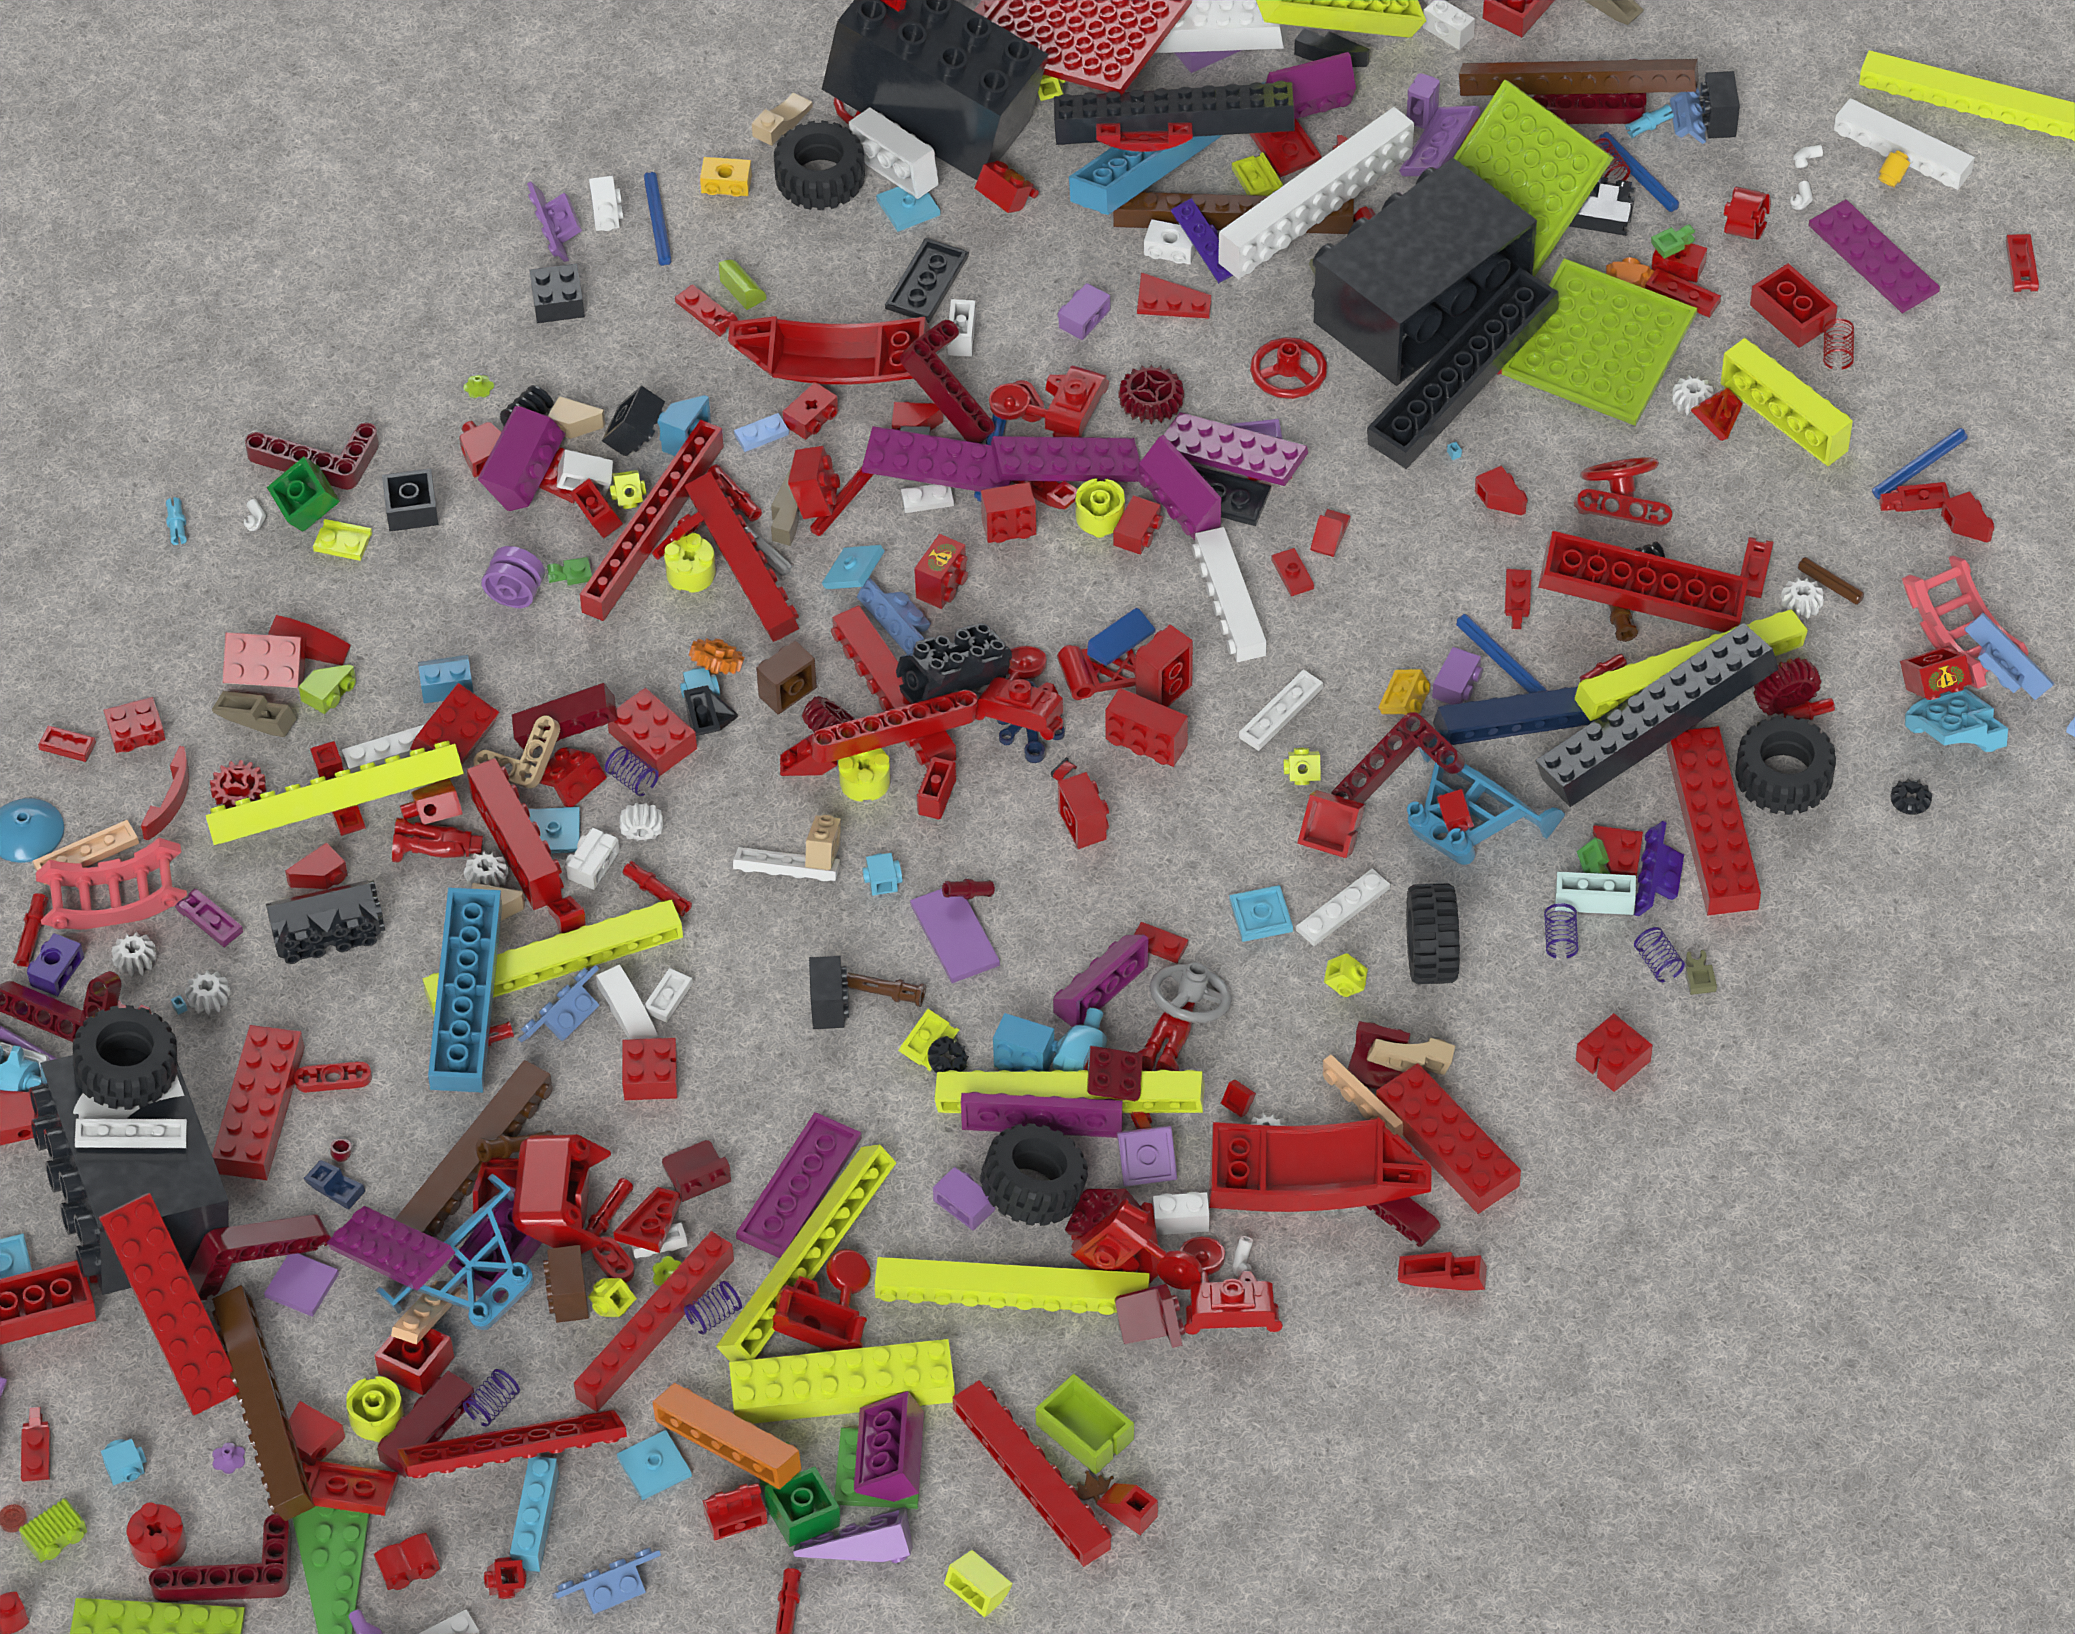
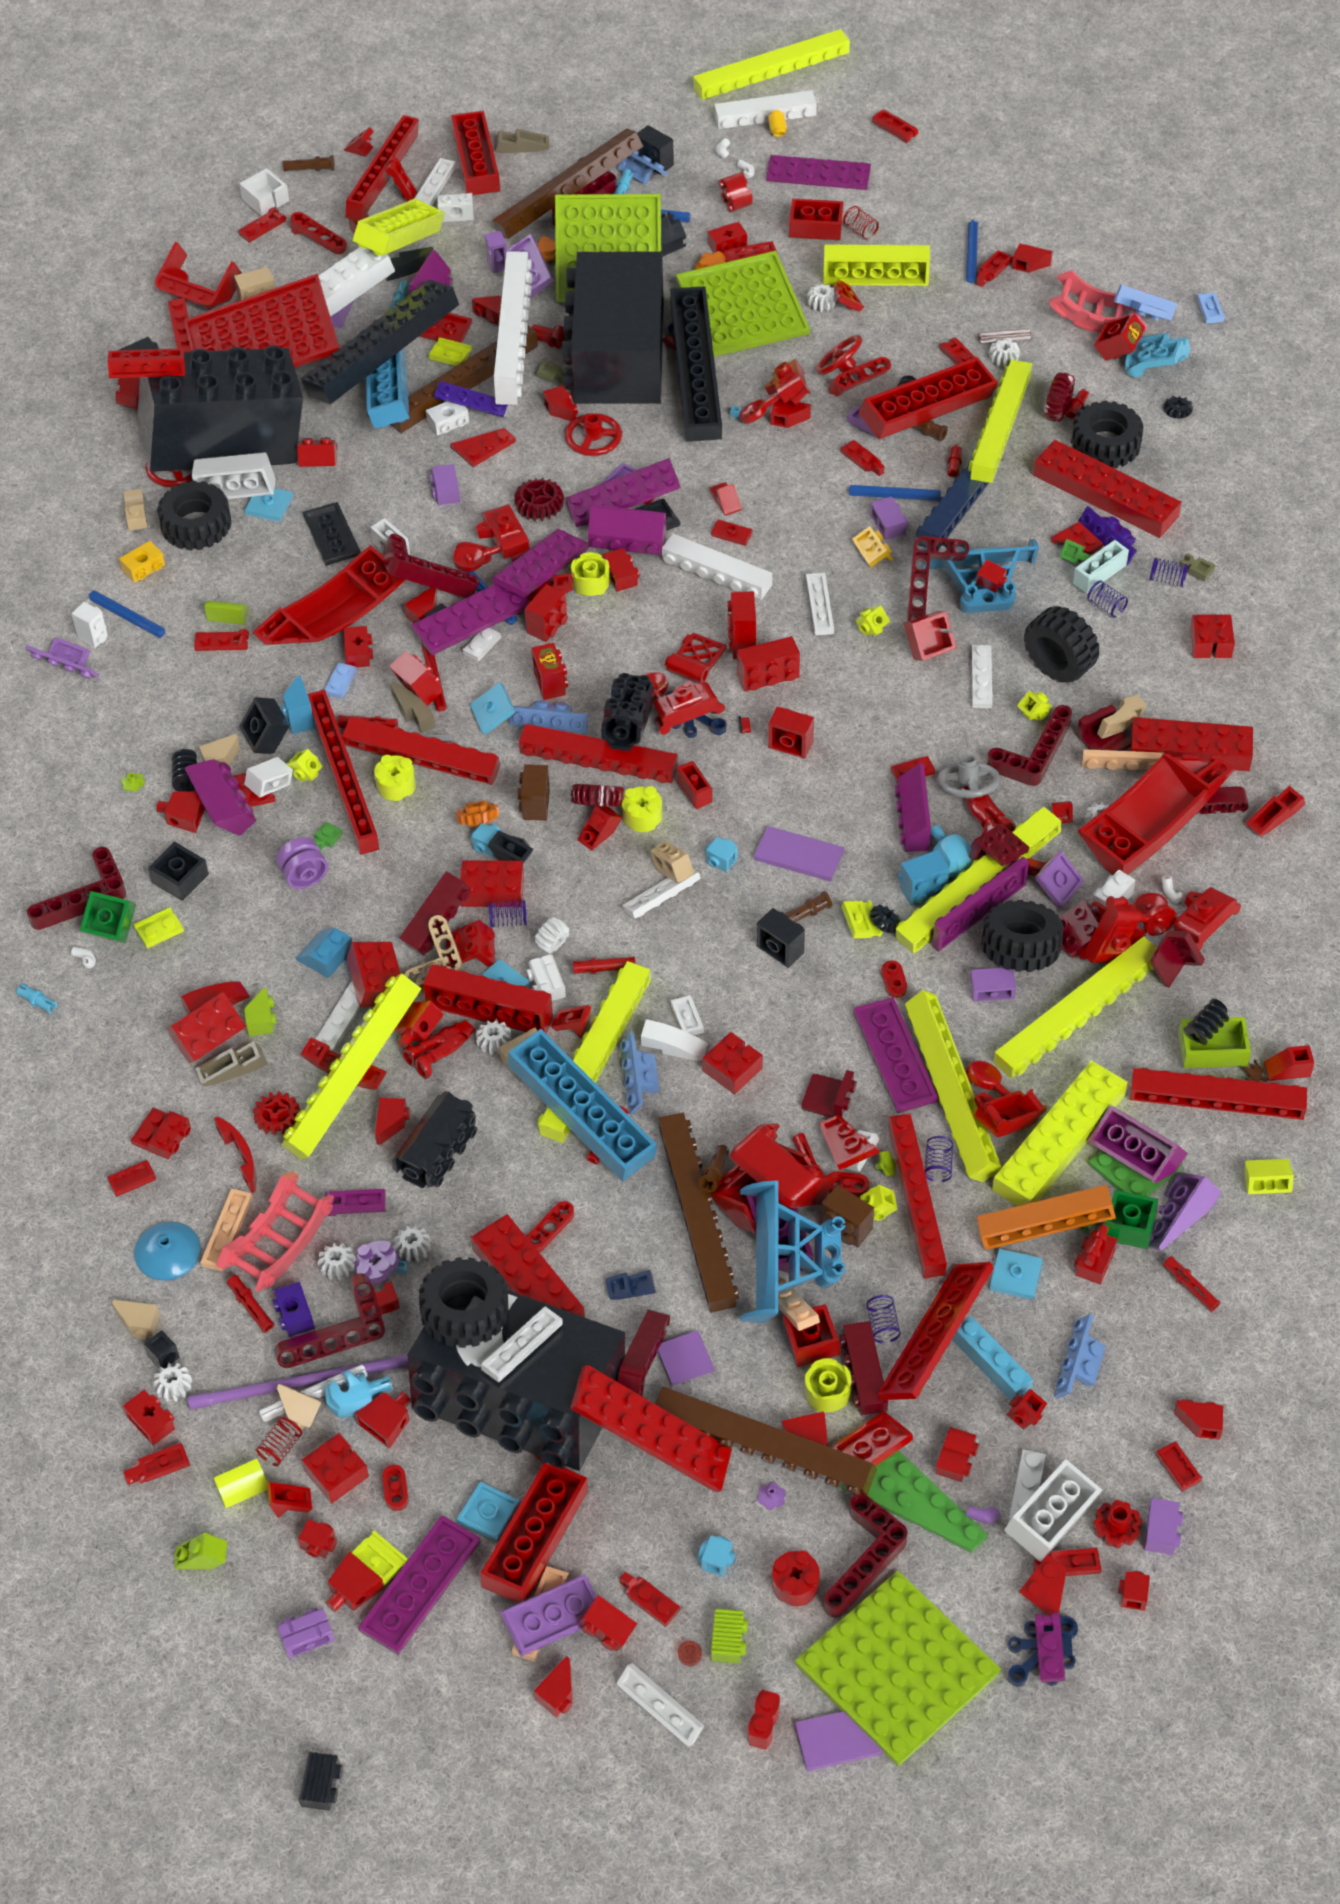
camera: 45 degrees left, 0 degrees up
(152, 985) = (376, 1250): none -> medium lavender plate
(340, 1150) = (610, 1262): dark red hinge -> none
(390, 1247) = (729, 1283): magenta plate -> none
(557, 293) = (120, 694): brick -> none
(596, 508) = (300, 789): red brick -> none
(686, 526) = (369, 764): red wing -> none
(890, 1117) = (894, 977): none -> red plate
(894, 726) = (638, 767): red beam -> none
(968, 888) = (781, 822): dark red pin -> none
(1082, 1395) = (1207, 1022): none -> black piece
(1120, 637) = (690, 632): blue slope -> none
(1144, 140) = (397, 353): red slope -> none
(1261, 913) = (946, 712): medium azure plate -> none
(1292, 308) = (559, 403): none -> red slope
(1296, 1022) = (1033, 769): none -> dark red beam
(1517, 461) = (787, 381): none -> red piece
(1657, 714) = (1023, 454): black brick -> none
(1670, 242) = (720, 228): bright green plate -> none

